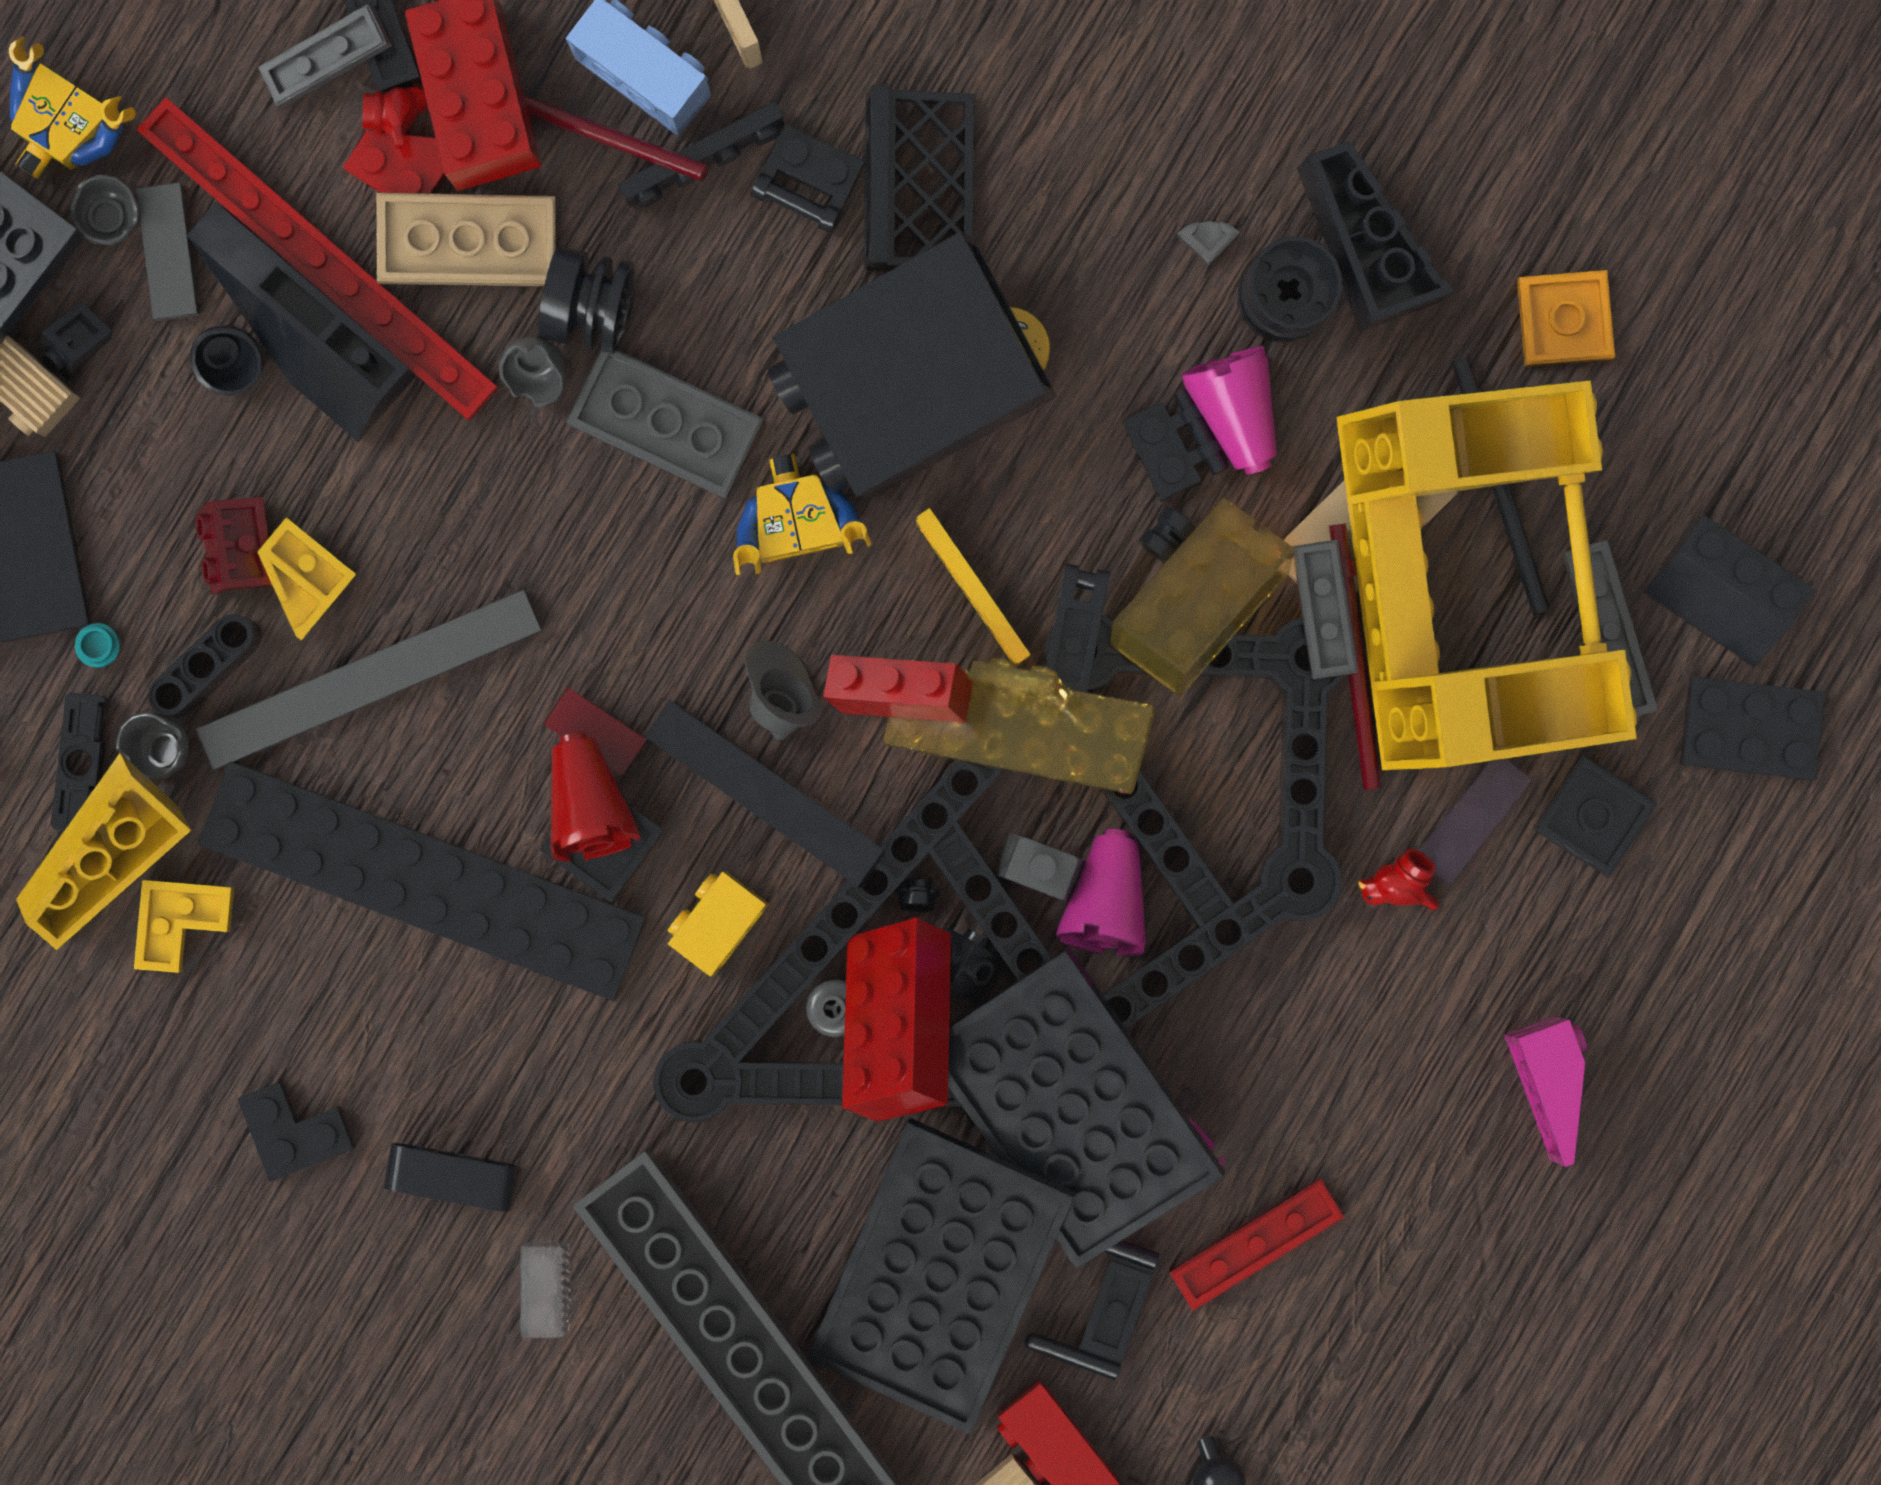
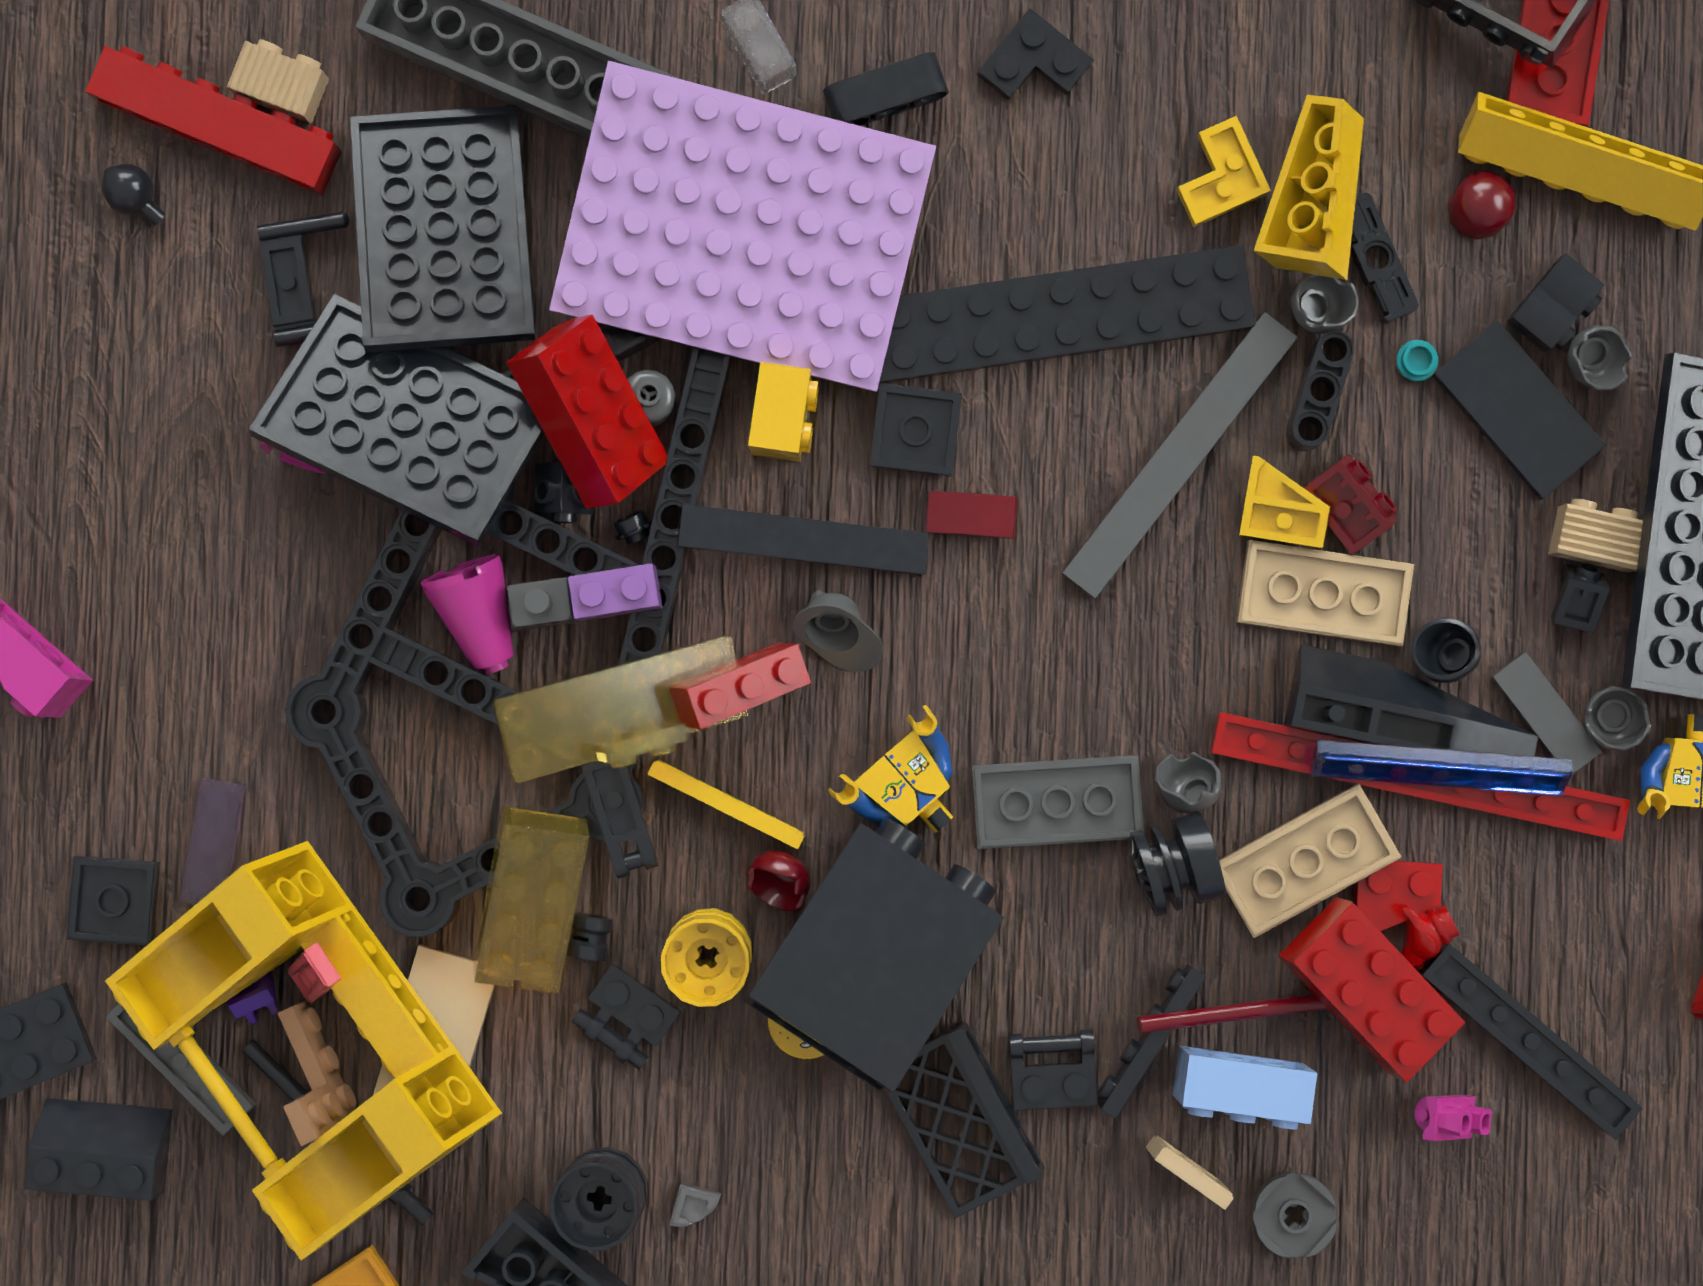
camera: 155 degrees right, 0 degrees up
(293, 254) = (1440, 767): none -> clear blue tile
(307, 476) = (1325, 593): none -> tan tile
(325, 56) = (1509, 949): dark grey tile -> none
(586, 803) = (943, 450): red cone -> none
(657, 1117) = (742, 226): none -> lavender plate
(962, 490) = (779, 880): none -> dark red hair
(966, 837) = (615, 592): none -> medium lavender brick
(1086, 438) = (704, 981): none -> yellow wheel
(1237, 406) = (590, 1077): dark pink cone -> none
(1256, 1244) = (203, 398): red tile -> none
(1324, 609) = (423, 945): dark grey tile -> none
(1358, 681) = (427, 988): dark red bar -> none
(1402, 882) = (241, 757): red animal -> none
(1439, 639) = (313, 973): none -> coral tile
(1490, 515) = (330, 1097): none -> medium nougat plate
(1510, 650) = (254, 997): none -> dark purple tile

